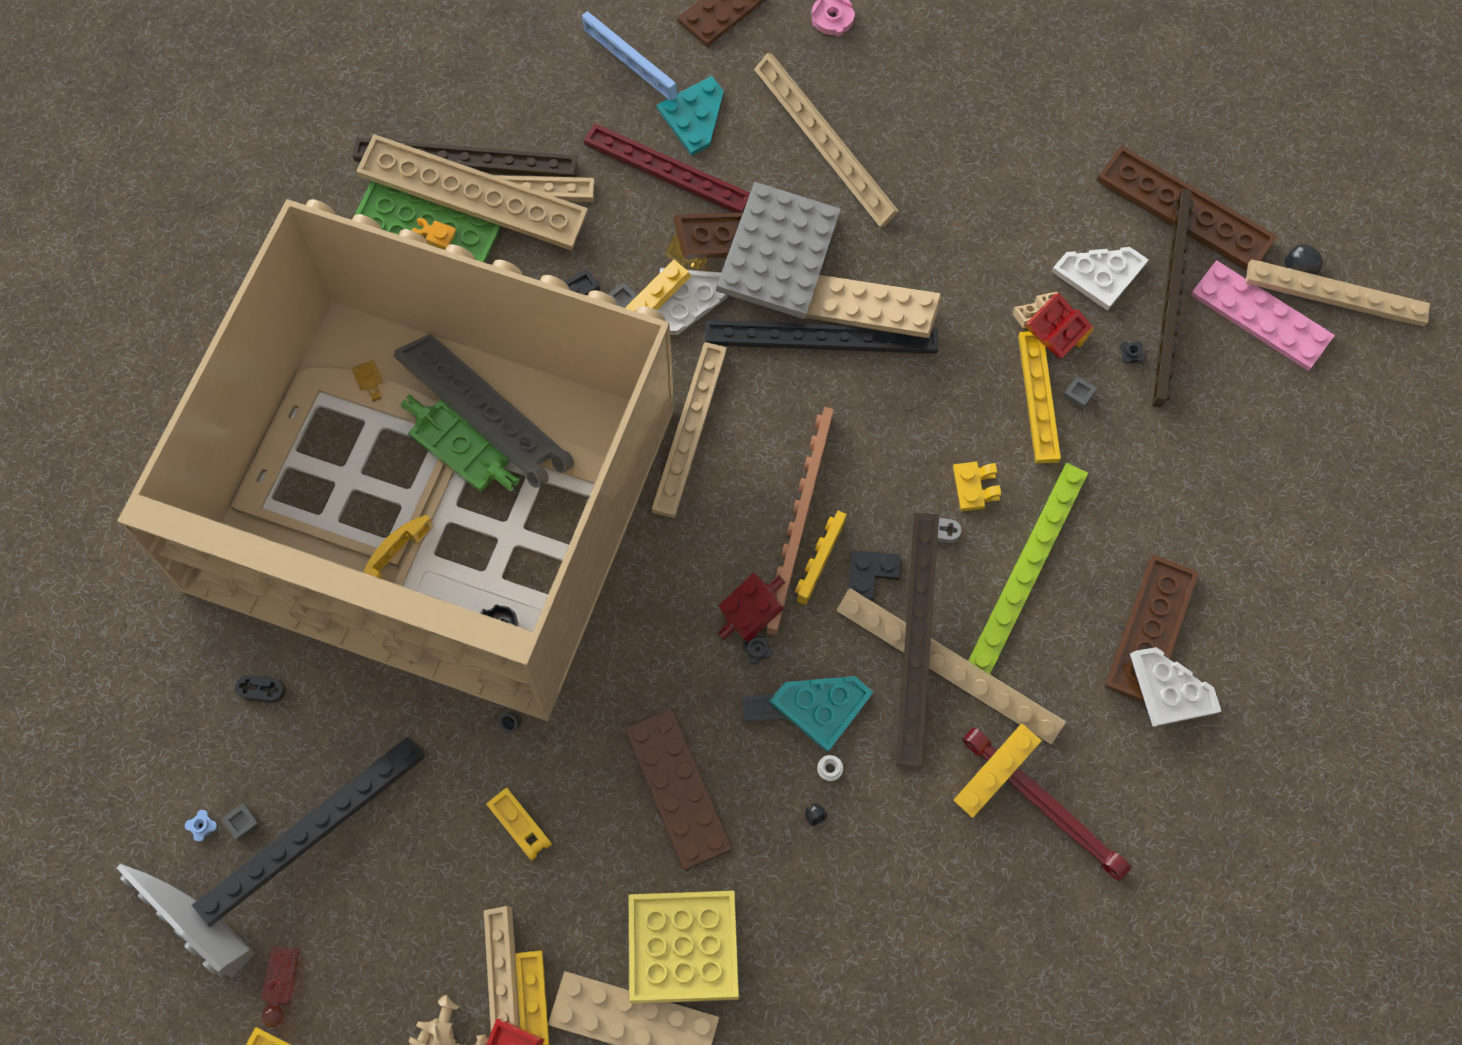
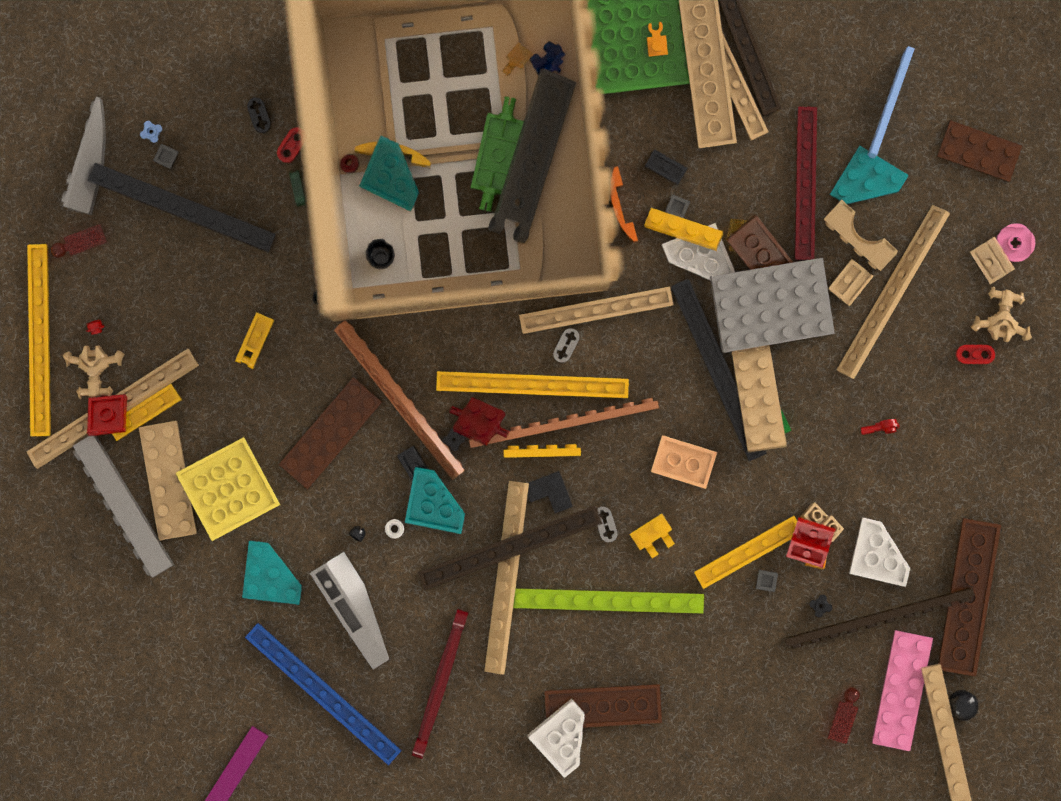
camera: 65 degrees right, 20 degrees up
(317, 668) = (291, 145): none -> red plate
(369, 684) = (297, 188): none -> clear green beam
(388, 343) = (550, 61): none -> clear blue hips
(393, 1017) = (95, 327): none -> red plate
(415, 563) = (390, 175): none -> teal plate
(678, 687) = (396, 396): none -> nougat plate
(708, 481) = (561, 344): none -> light grey beam
(723, 149) = (877, 252): none -> tan arch
(736, 536) = (532, 384): none -> yellow plate
(794, 172) = (850, 282): none -> tan plate
(816, 950) = (268, 576): none -> teal plate
(840, 39) = (992, 260): none -> tan plate
(902, 863) = (352, 605): none -> light grey wedge
(906, 416) = (683, 462): none -> light nougat plate
(909, 58) = (1002, 323): none -> tan piece
(928, 96) = (975, 354): none -> red plate
(965, 203) = (888, 426): none -> red plate
(994, 954) = (323, 693): none -> blue plate
(997, 770) = (445, 642): yellow plate -> none
(1269, 382) = (844, 717): none -> clear red plate

